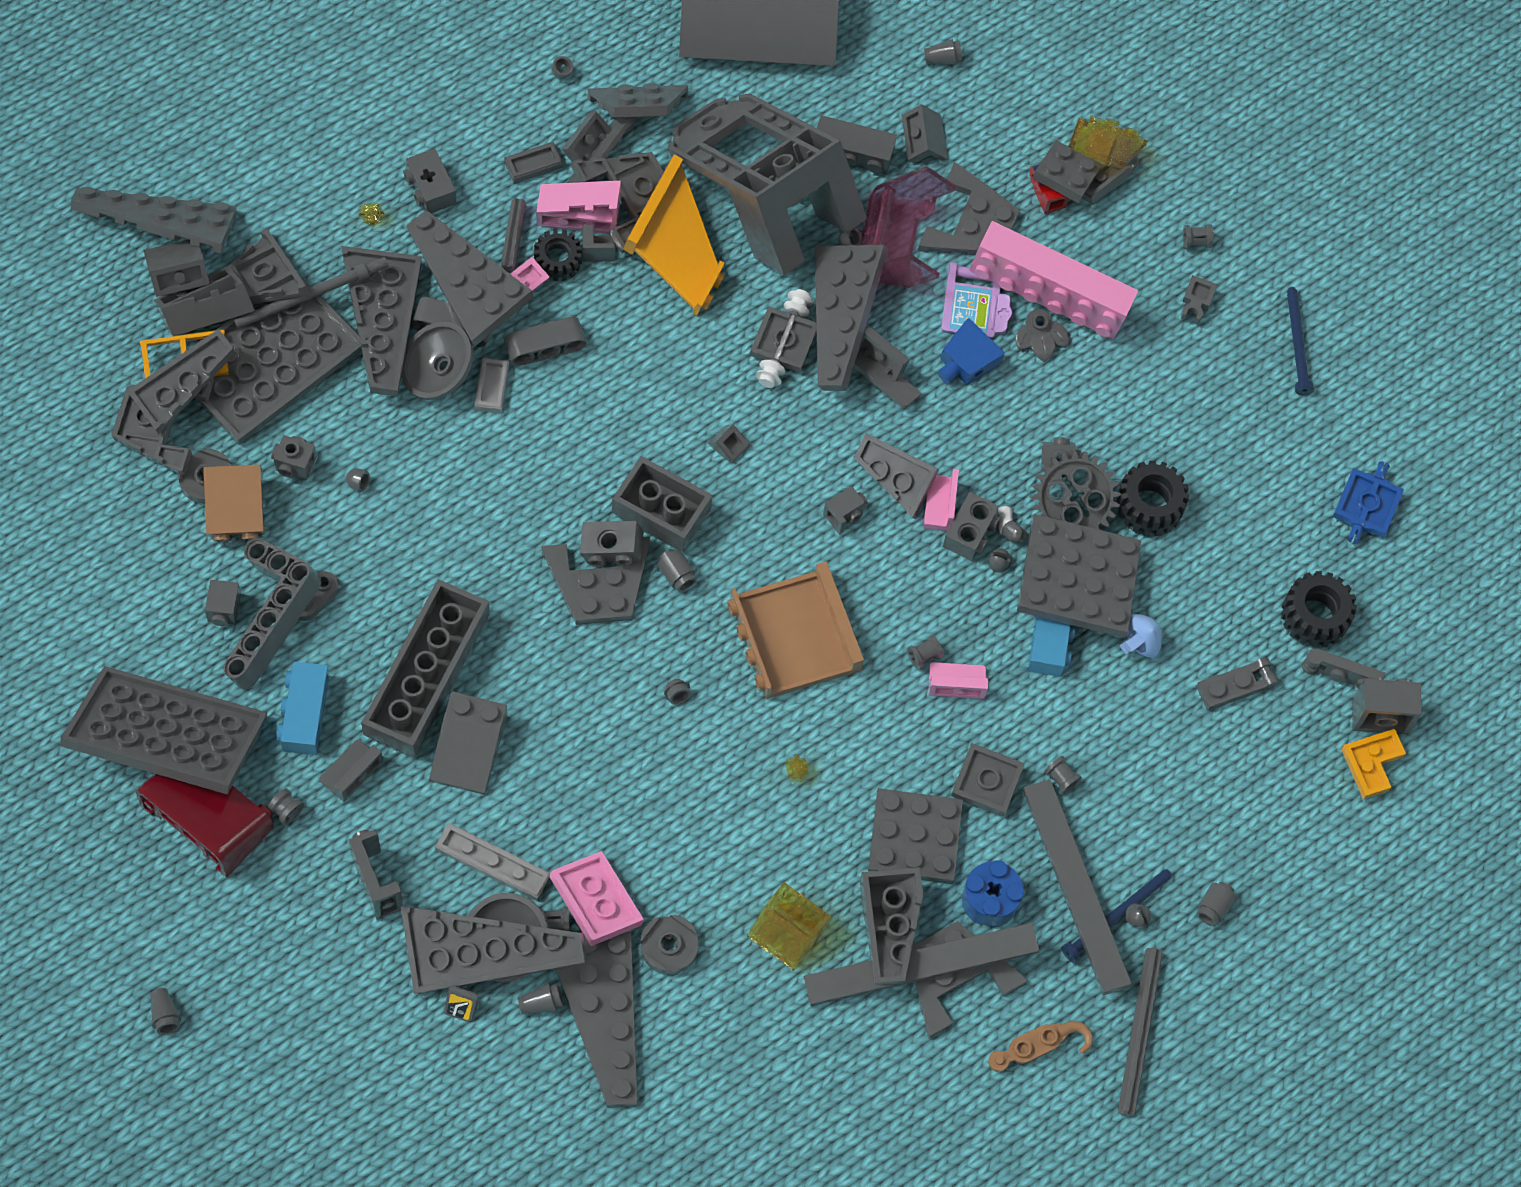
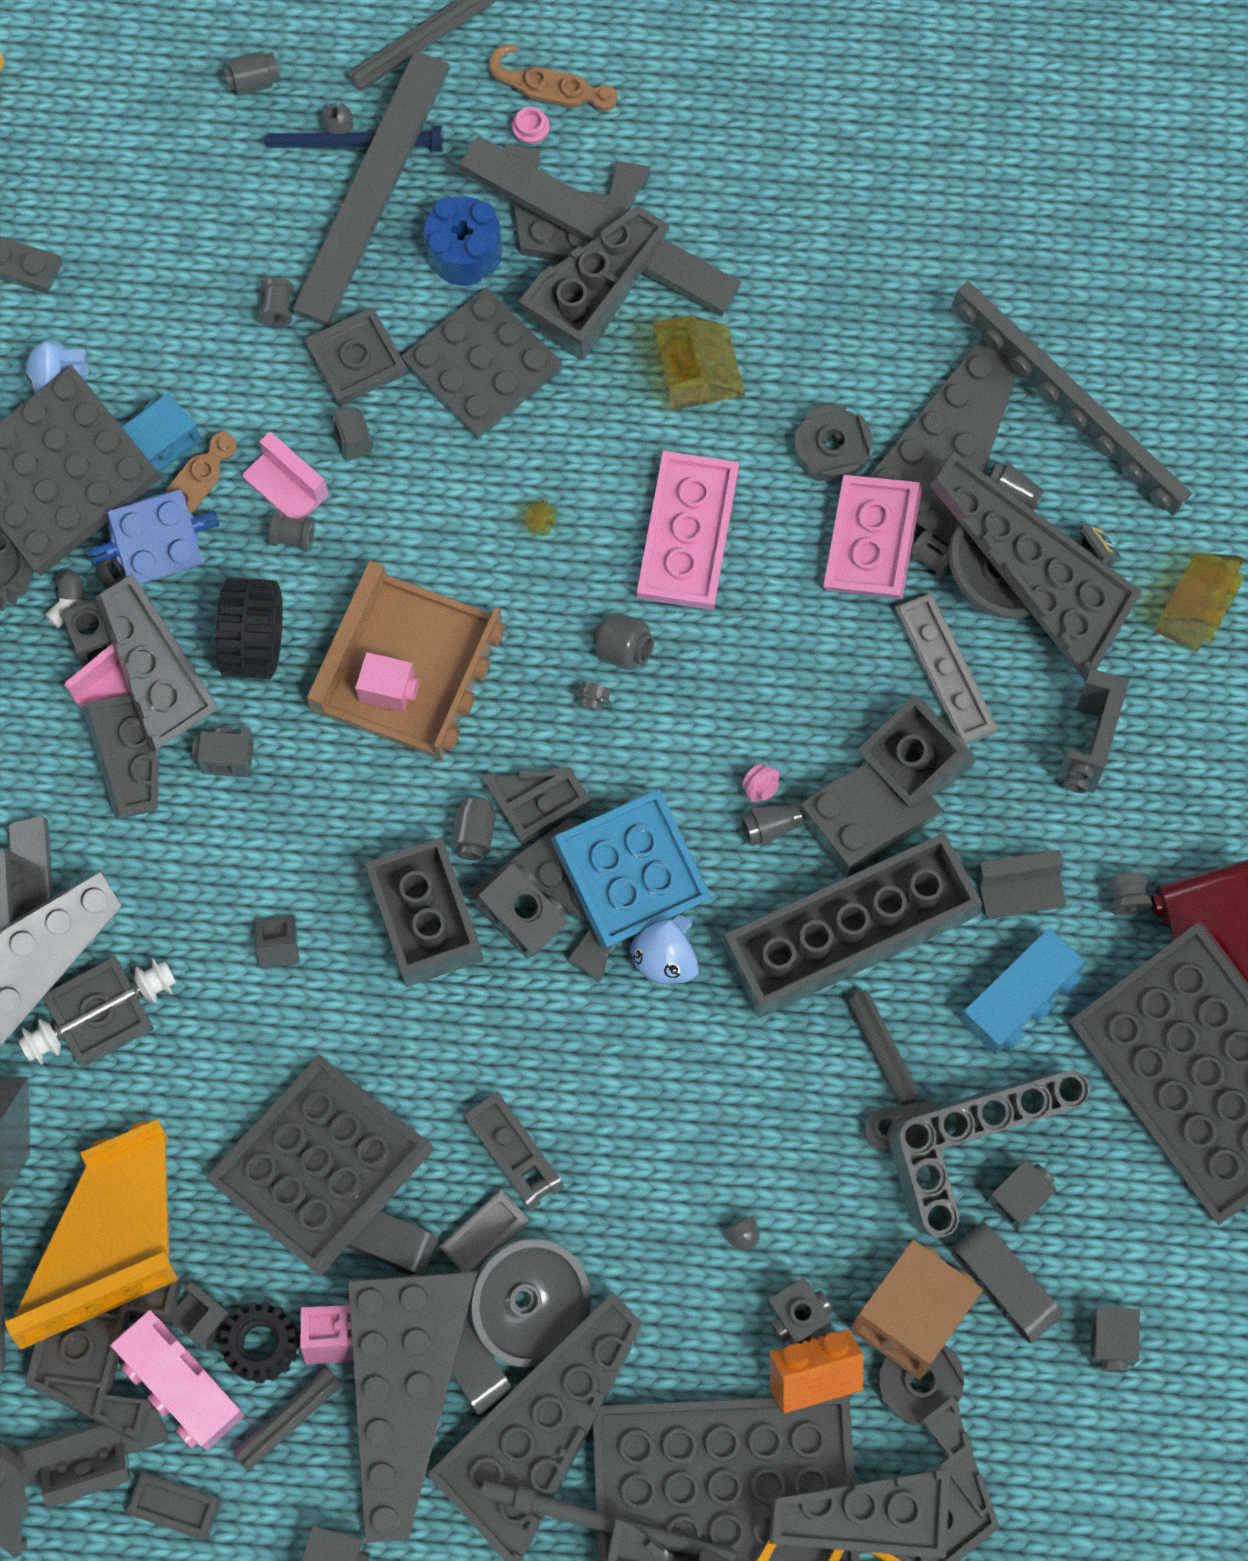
camera: 130 degrees left, 5 degrees up
(118, 568) = (1115, 1338): none -> dark grey brick
(198, 554) = (1006, 1282): none -> dark grey beam
(262, 432) = (816, 1371): none -> orange brick
(358, 626) = (883, 1048): none -> dark grey axle
(374, 1005) = (1201, 599): none -> clear yellow slope
(466, 792) = (917, 752): none -> dark grey slope
(511, 431) = (512, 1149): none -> dark grey plate
(517, 578) = (665, 952): none -> light blue piece
(519, 693) = (770, 823): none -> dark grey cone
(537, 1073) = (1079, 407): none -> dark grey plate
(542, 712) = (761, 782): none -> bright pink plate
(571, 606) = (630, 868): none -> dark azure plate
(600, 344) = (320, 1164): none -> dark grey plate
(658, 612) = (537, 799): none -> dark grey wing
(686, 731) = (623, 641): none -> dark grey head
(707, 825) = (688, 530): none -> bright pink plate
(793, 606) = (387, 682): none -> bright pink brick
(890, 570) = (249, 628): none -> black tyre
(923, 515) = (156, 670): none -> wing
(946, 732) = (351, 433): none -> dark grey brick
(992, 584) = (154, 536): none -> plate
(1003, 632) = (203, 471): none -> medium nougat piece
(1025, 1006) = (530, 125): none -> bright pink plate

